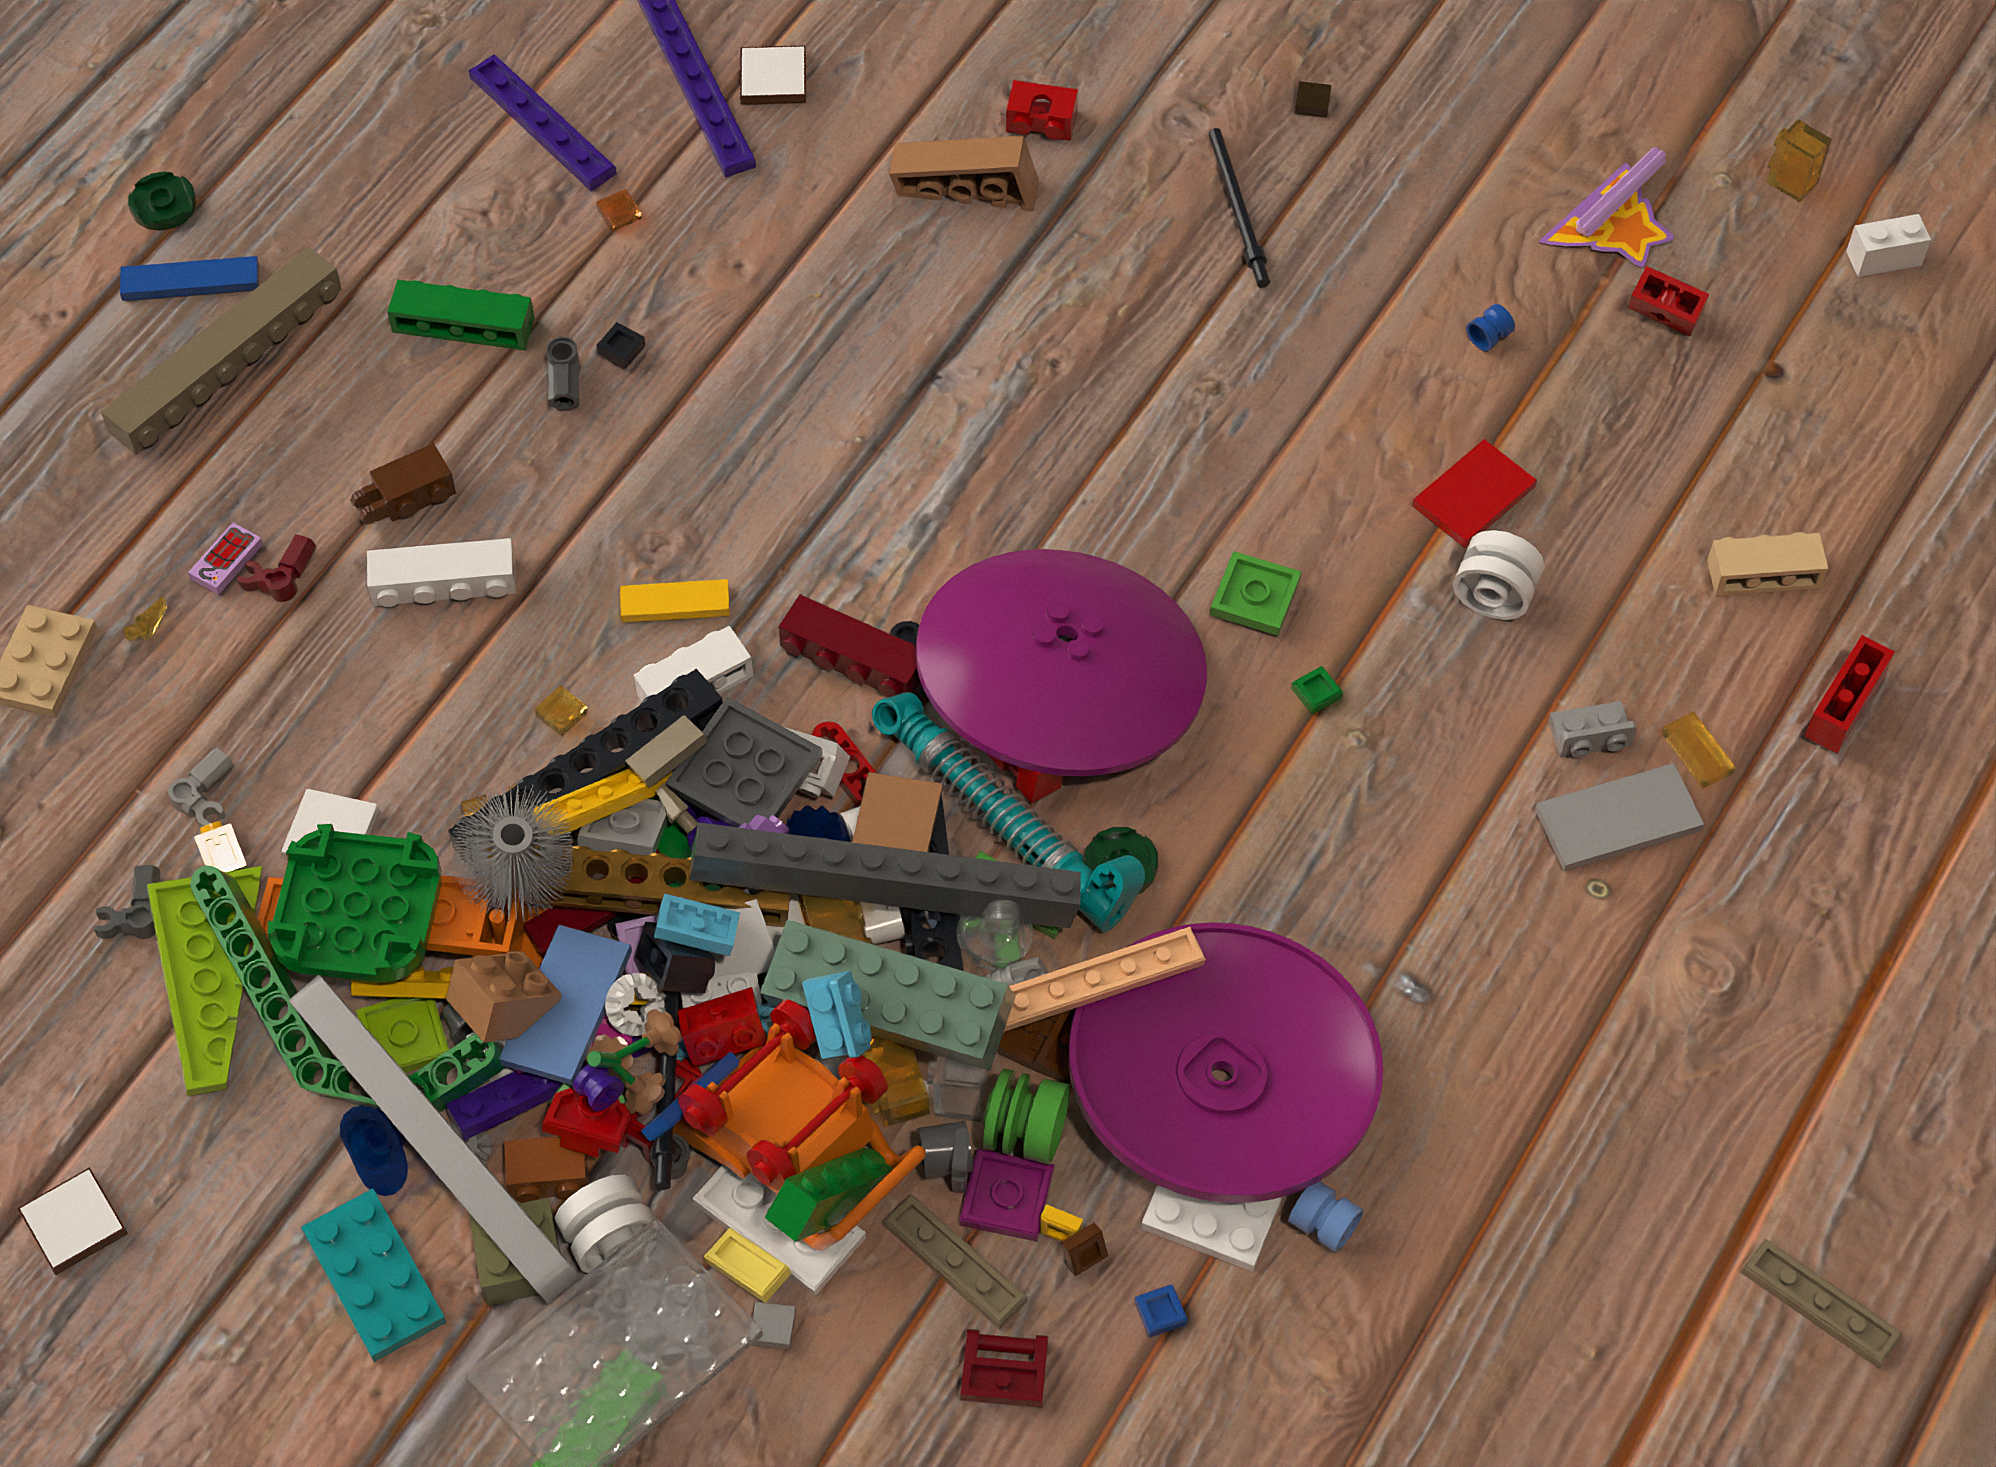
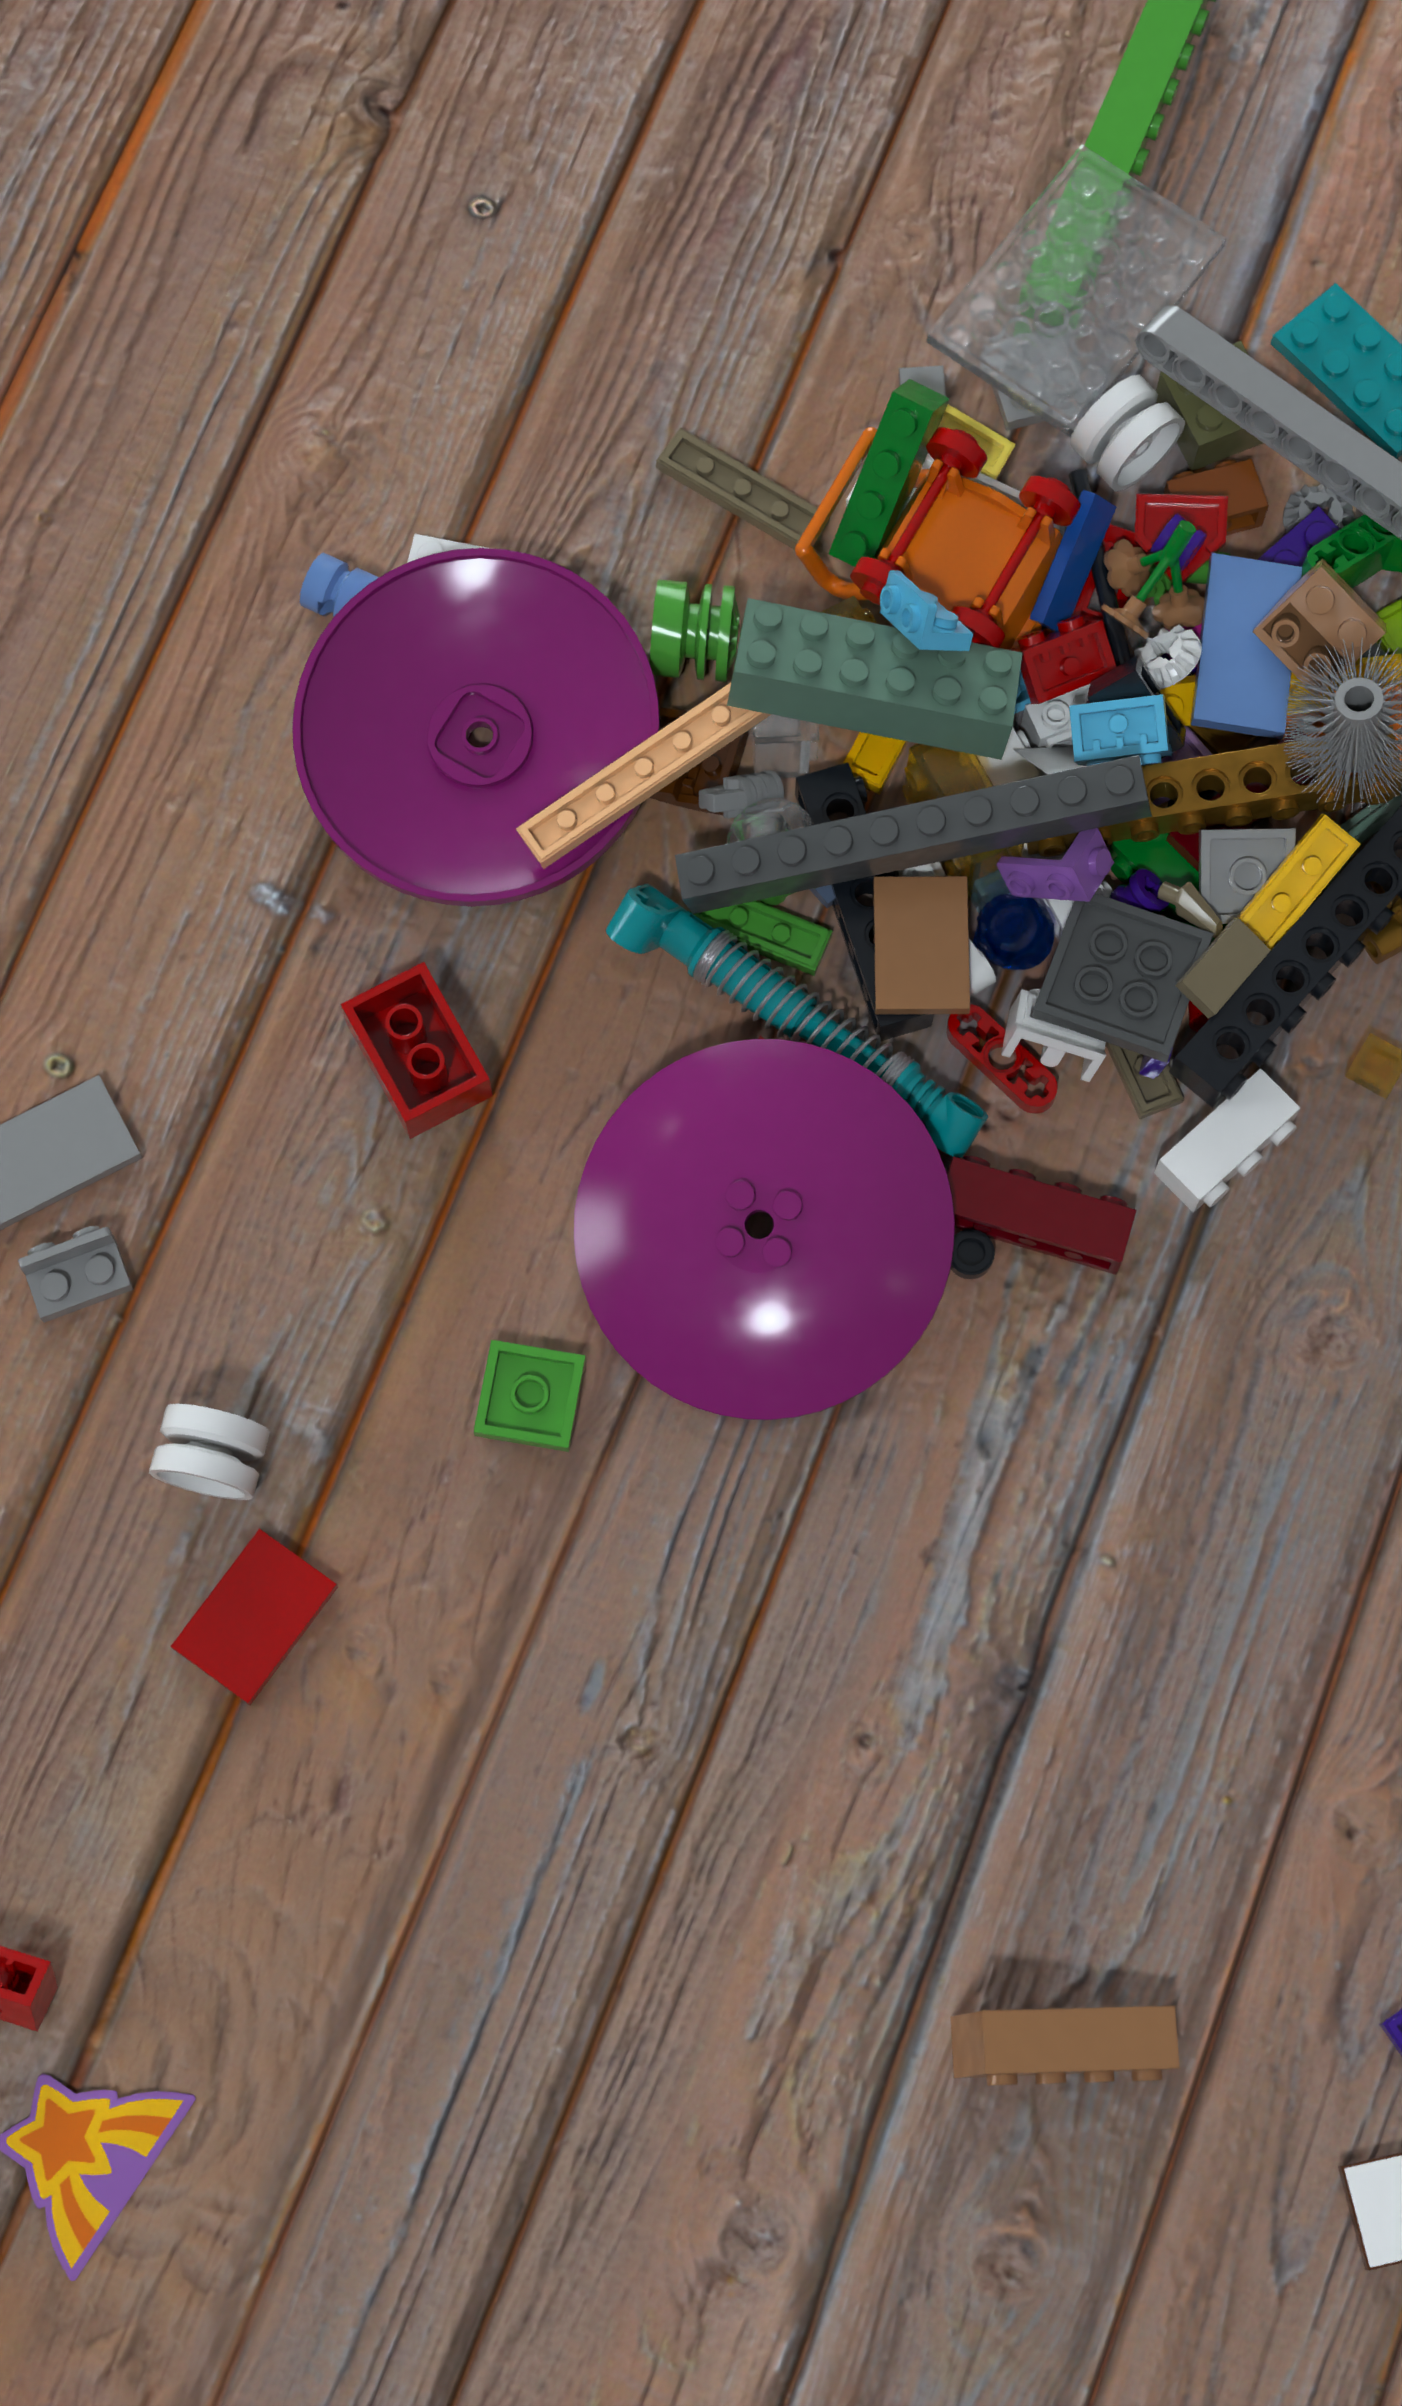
camera: 170 degrees right, 15 degrees up
(674, 600) = (1283, 1255): yellow tile -> none
(947, 1153) = (777, 578): dark grey piece -> none
(1003, 1379) = (662, 371): dark red plate -> none
(1006, 1195) = (702, 558): magenta tile -> none
(1052, 118) = (1006, 2200): red brick -> none
(1059, 1224) = (632, 536): yellow tile -> none
(1084, 1249) = (601, 513): reddish brown tile -> none
(1119, 842) = (642, 993): dark green tile -> none
(1161, 1310) = (509, 477): blue tile -> none
(1254, 253) = (610, 1977): black bar -> none
(1309, 830) = (417, 1050): none -> red brick
(1312, 99) = (564, 2314): dark brown tile -> none
(1317, 690) = (432, 1273): green tile -> none
(1488, 329) = (253, 1898): blue wheel -> none
(1620, 192) = (75, 2203): lavender axle -> none

